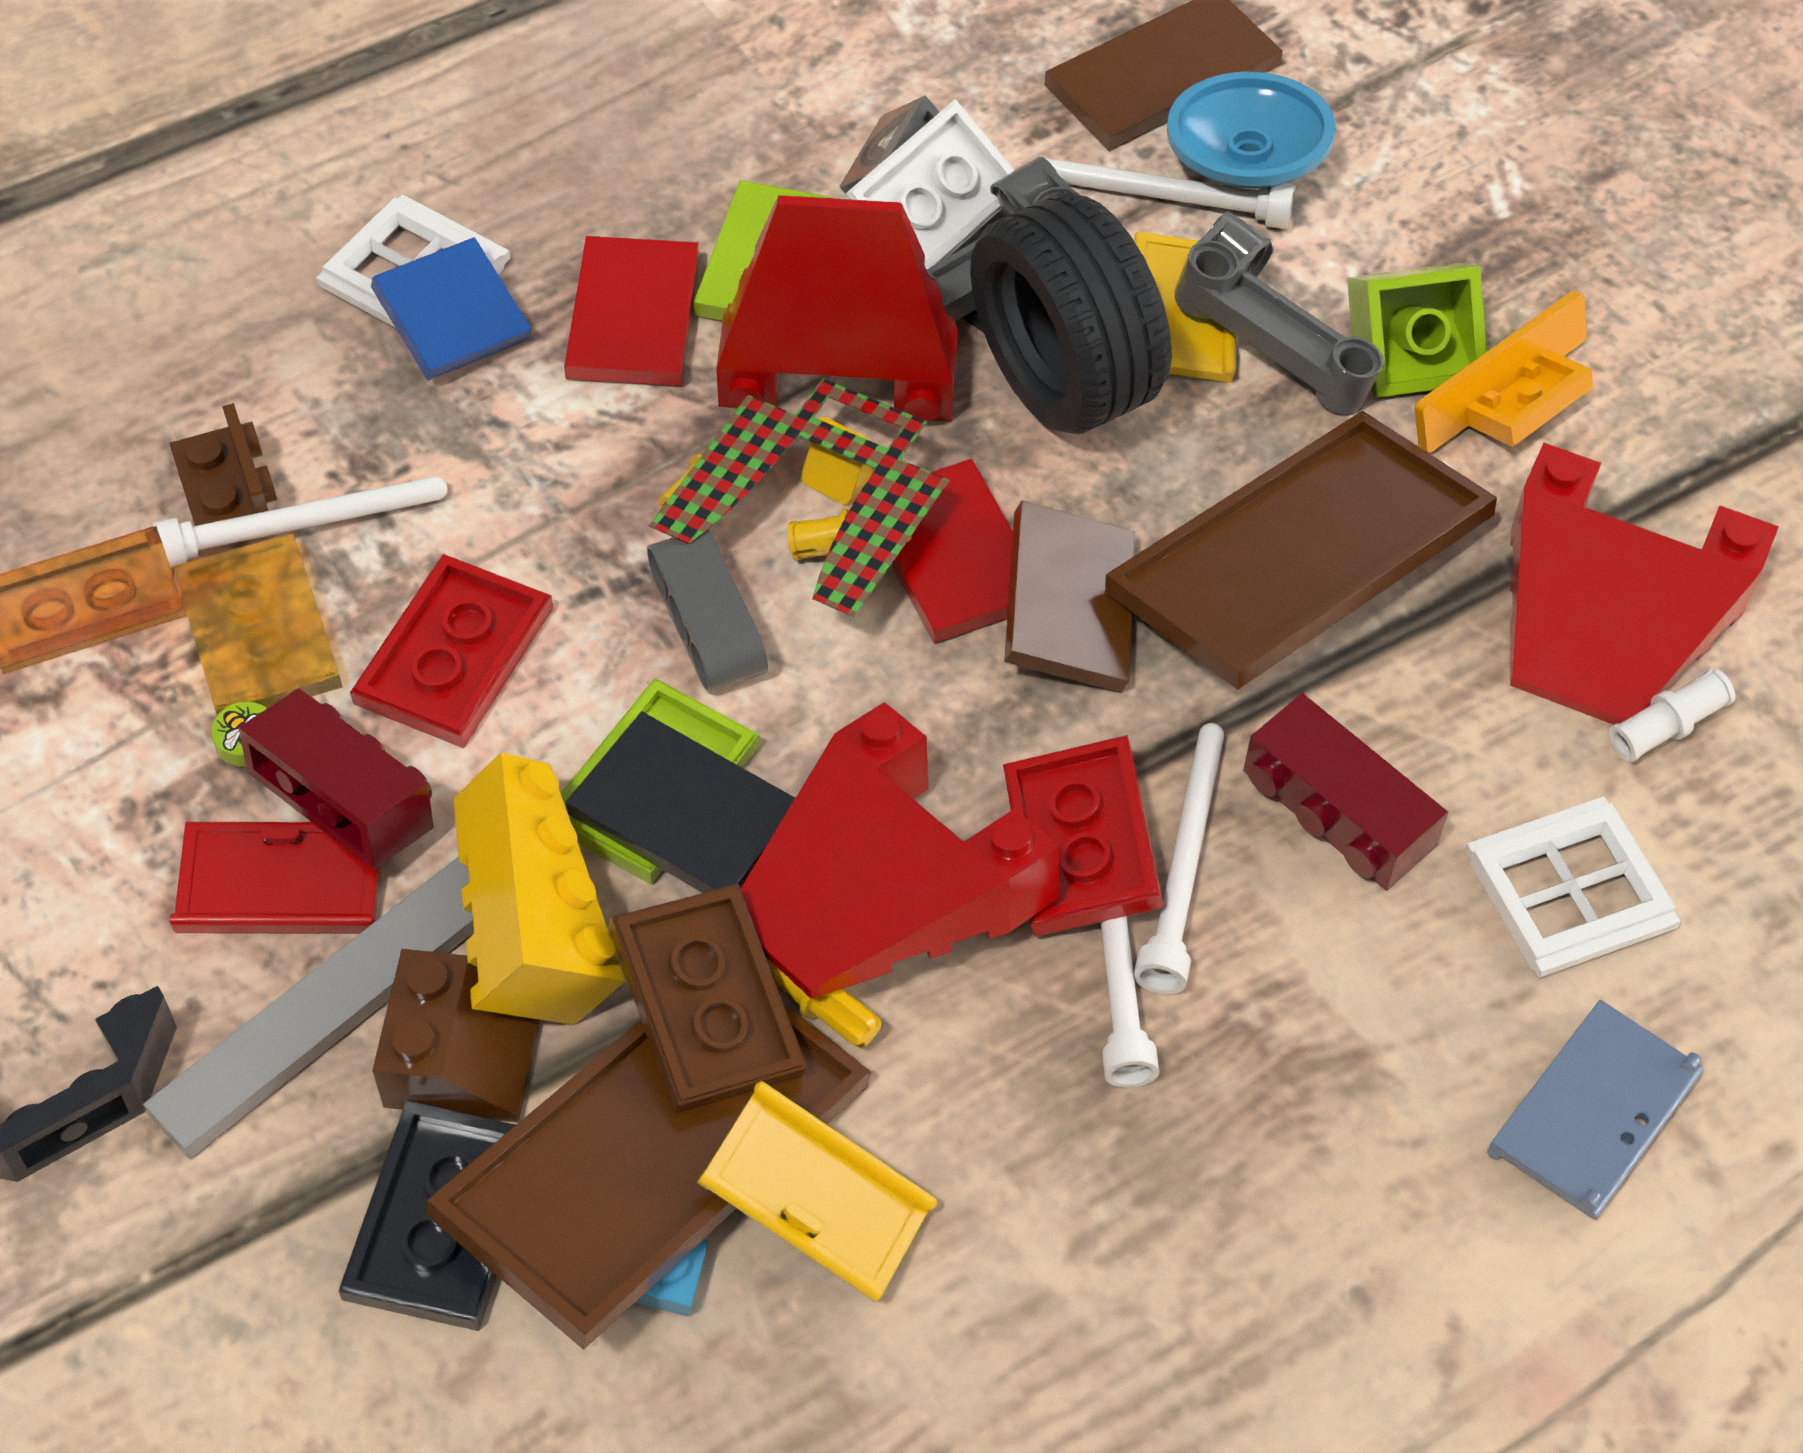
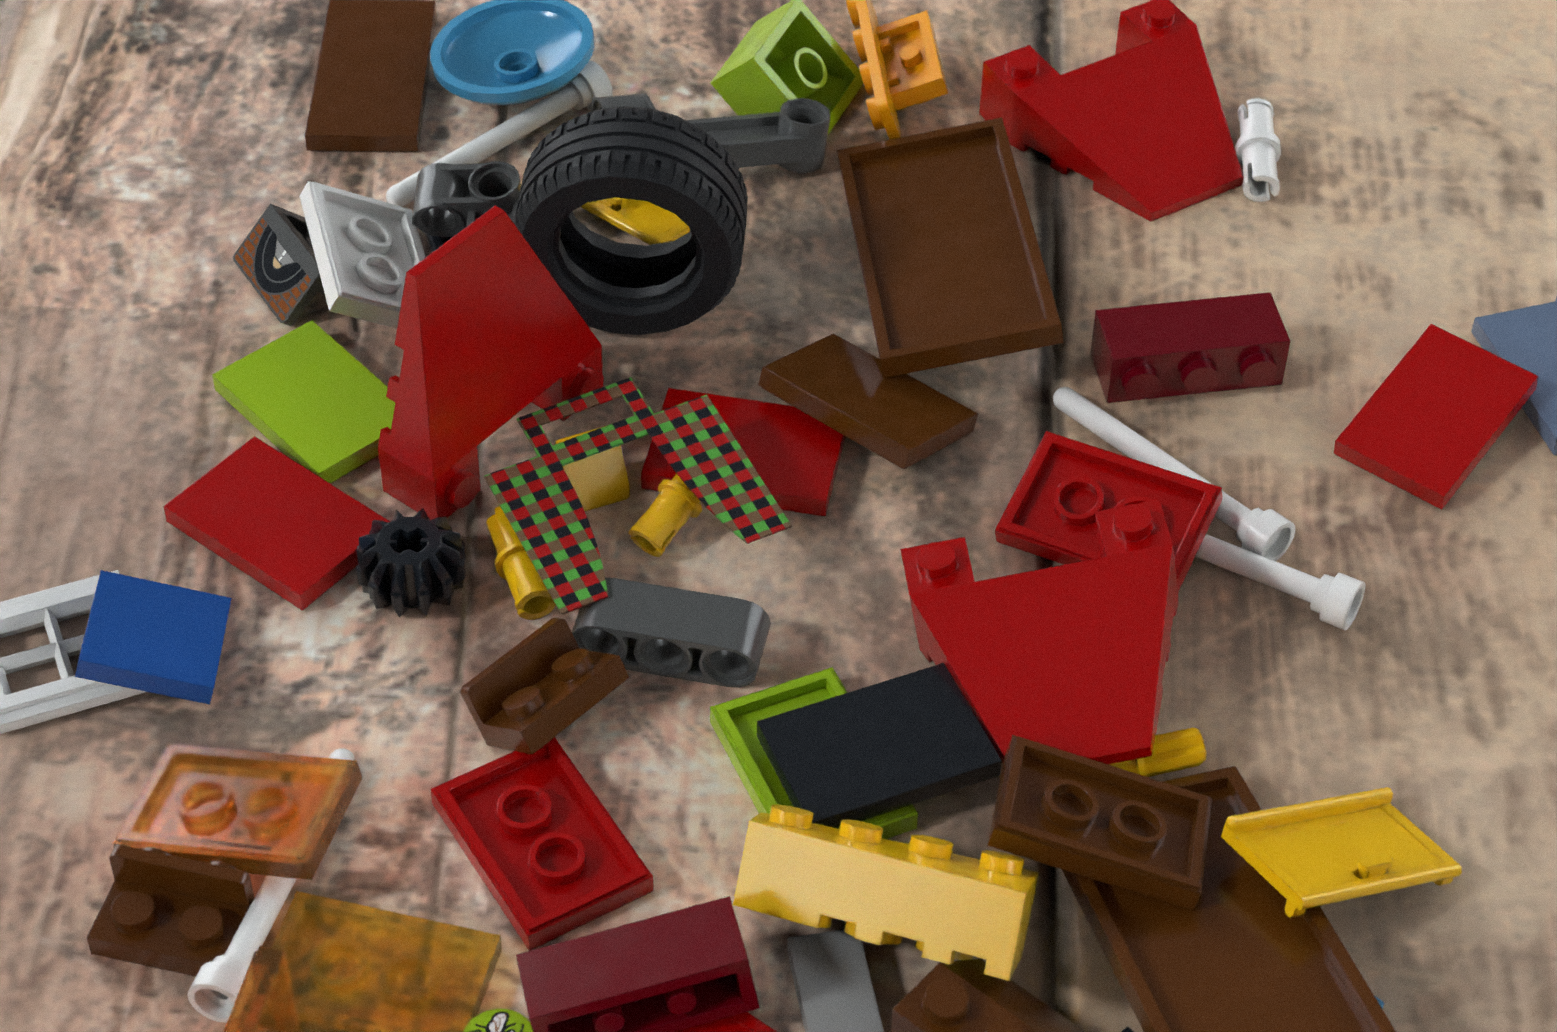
camera: 55 degrees left, 10 degrees down
(334, 456) = (243, 808): none -> clear orange tile
(581, 558) = (540, 688): none -> reddish brown bracket
(645, 409) = (411, 562): none -> black gear
(1434, 1027) = (1435, 416): none -> red tile
(1597, 935) = (1411, 289): white piece -> none

